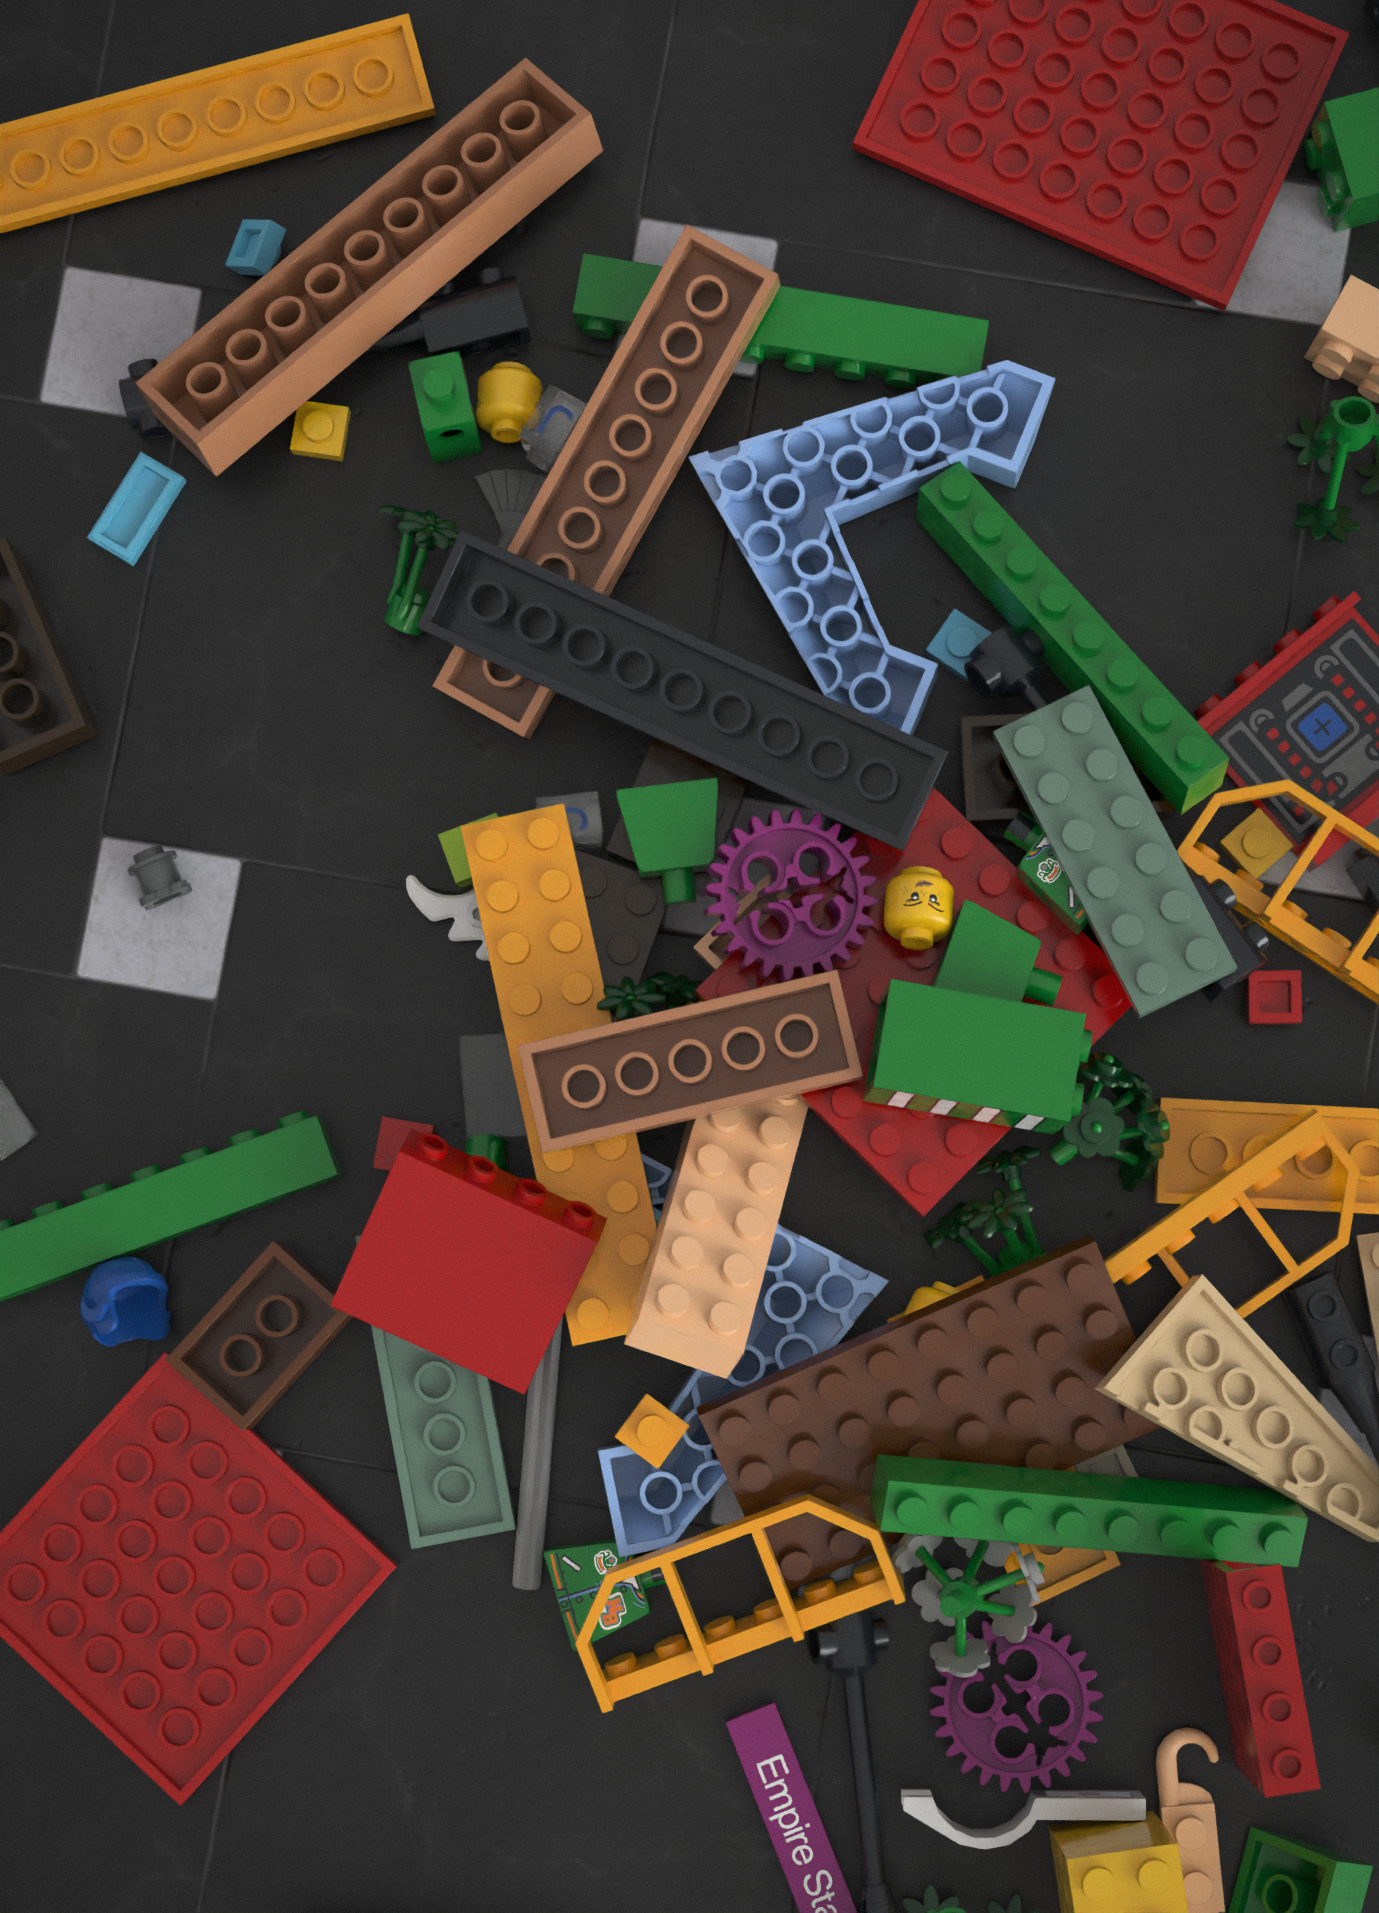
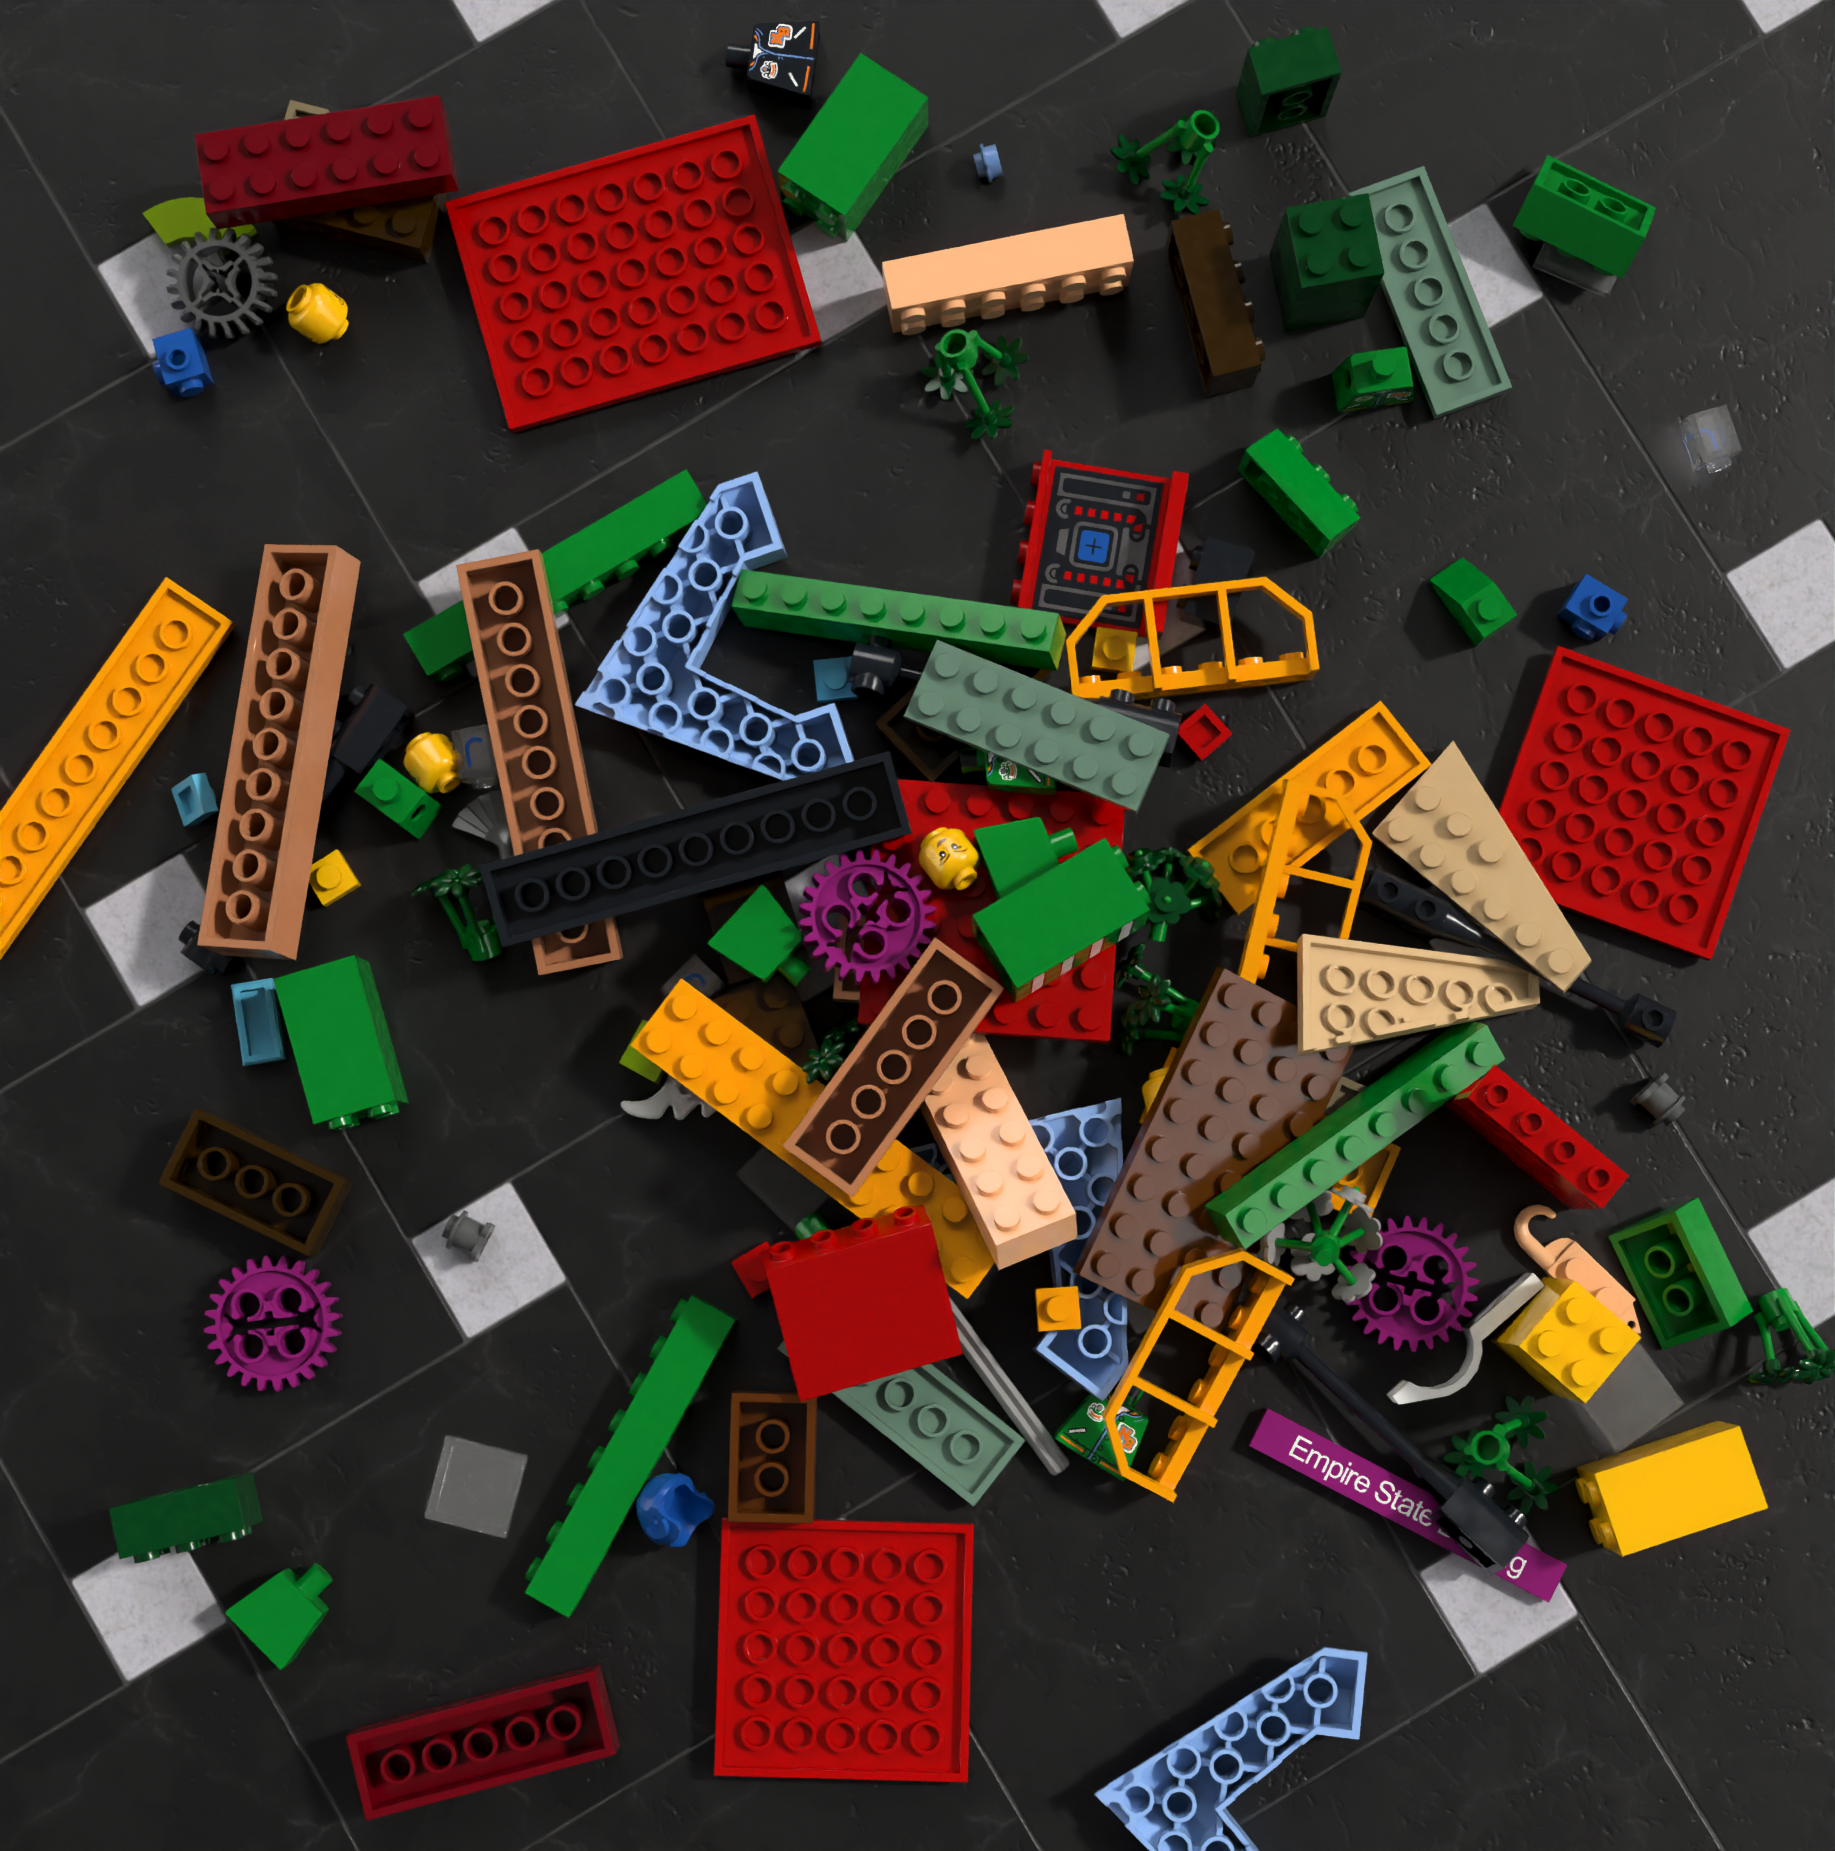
camera: 50 degrees left, 0 degrees up
(193, 593) = (341, 1043): none -> green brick

